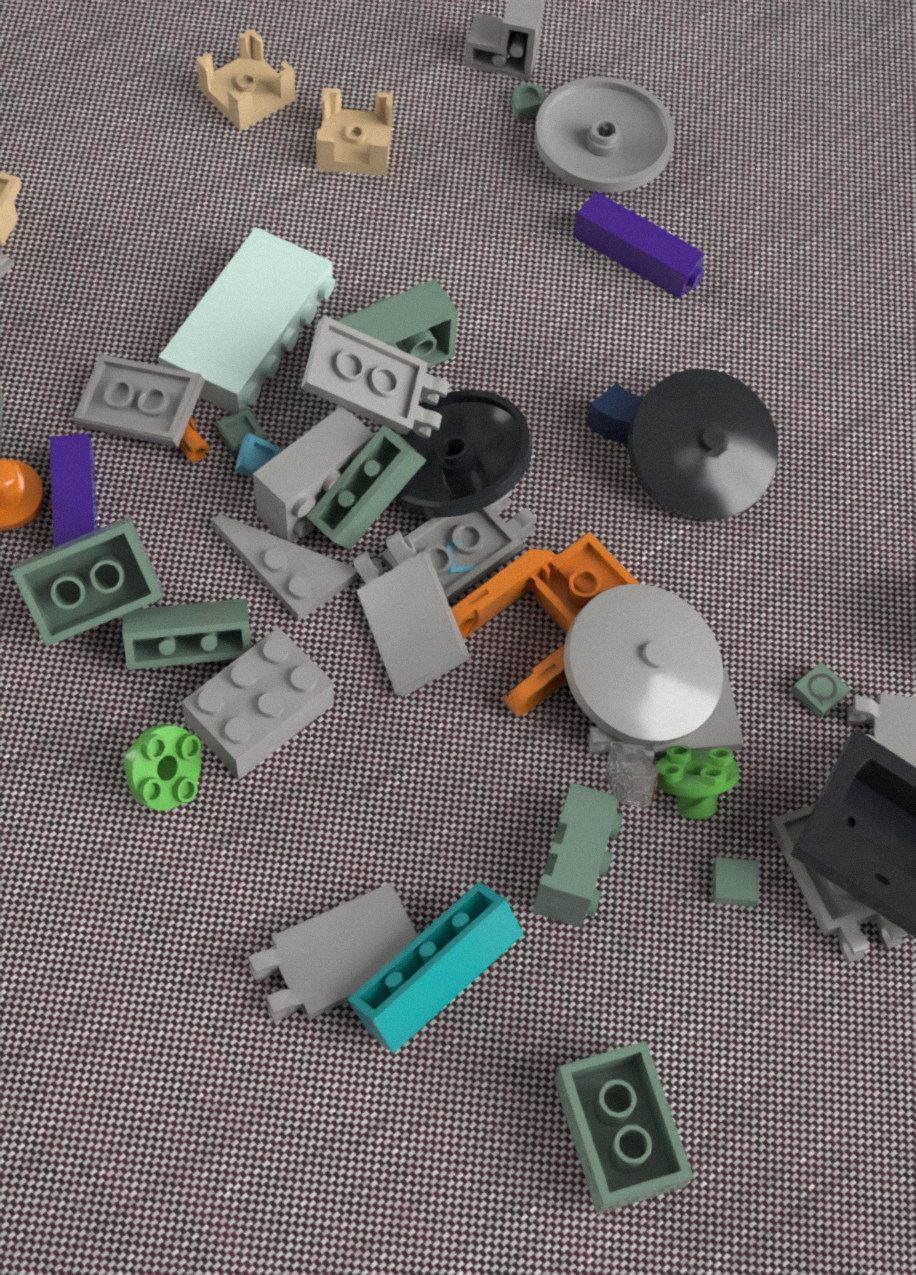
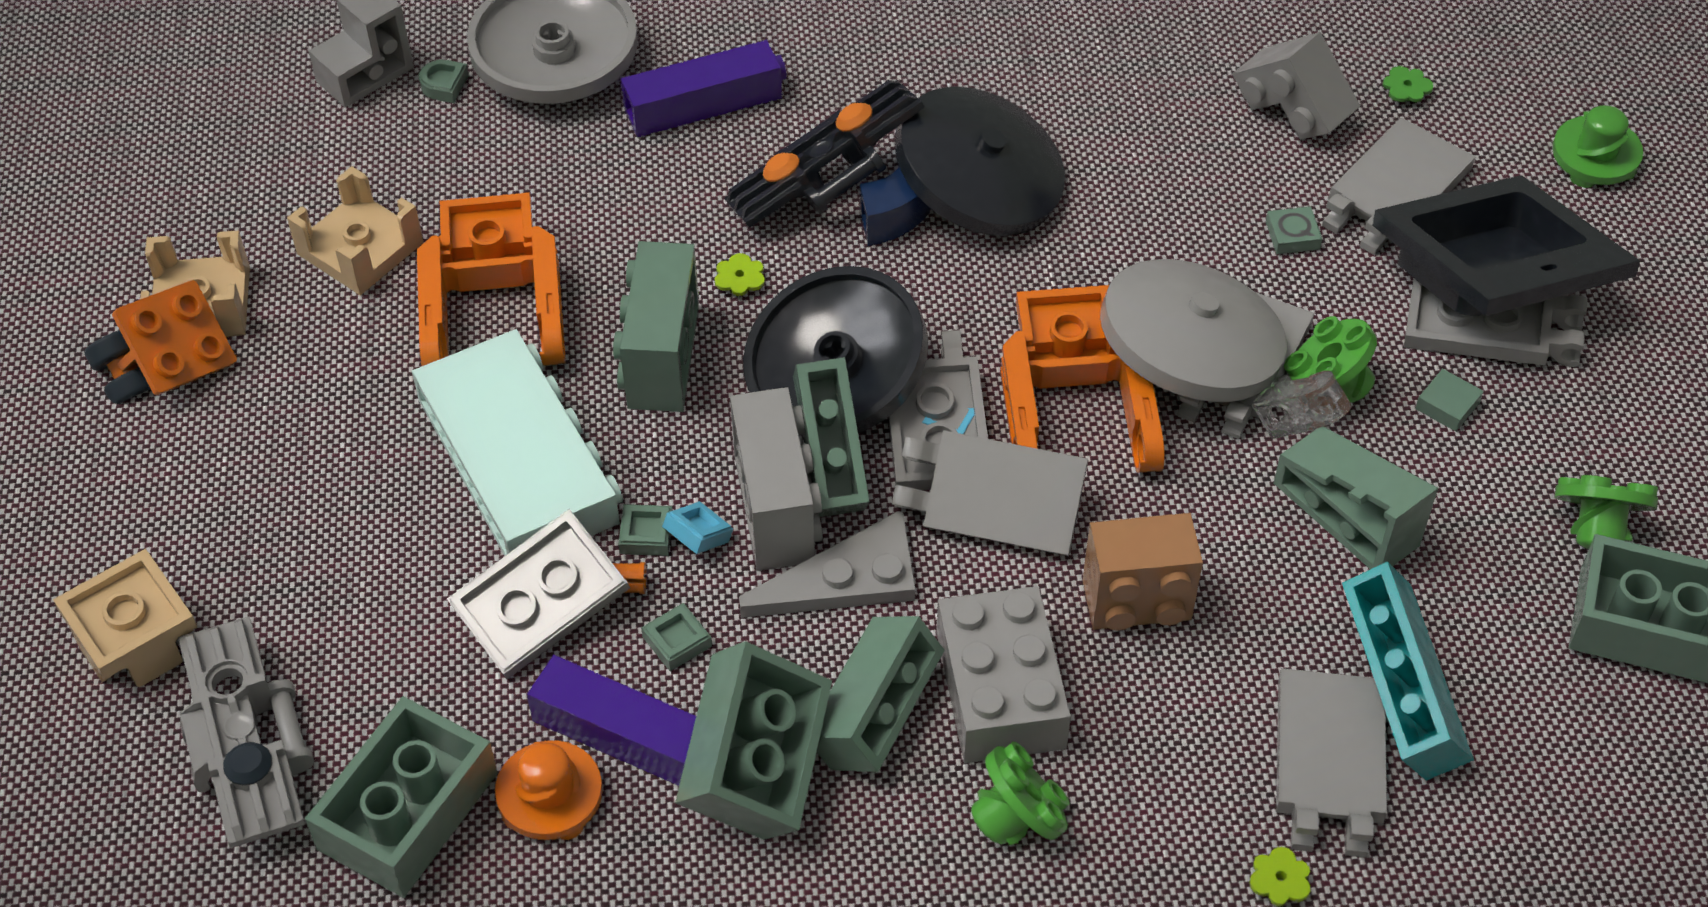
camera: 50 degrees left, 10 degrees down
(168, 498) = (676, 637): none -> sand green tile
(189, 92) = (161, 344): none -> orange plate
(206, 961) = (1281, 865): none -> lime plant
(372, 379) = (717, 353): light grey tile -> none
(389, 204) = (485, 247): none -> orange plate
(395, 743) = (1141, 571): none -> medium nougat brick
(493, 363) = (739, 275): none -> lime plant
(602, 340) = (846, 133): none -> black piece
(696, 1042) = (1604, 506): none -> bright green plate

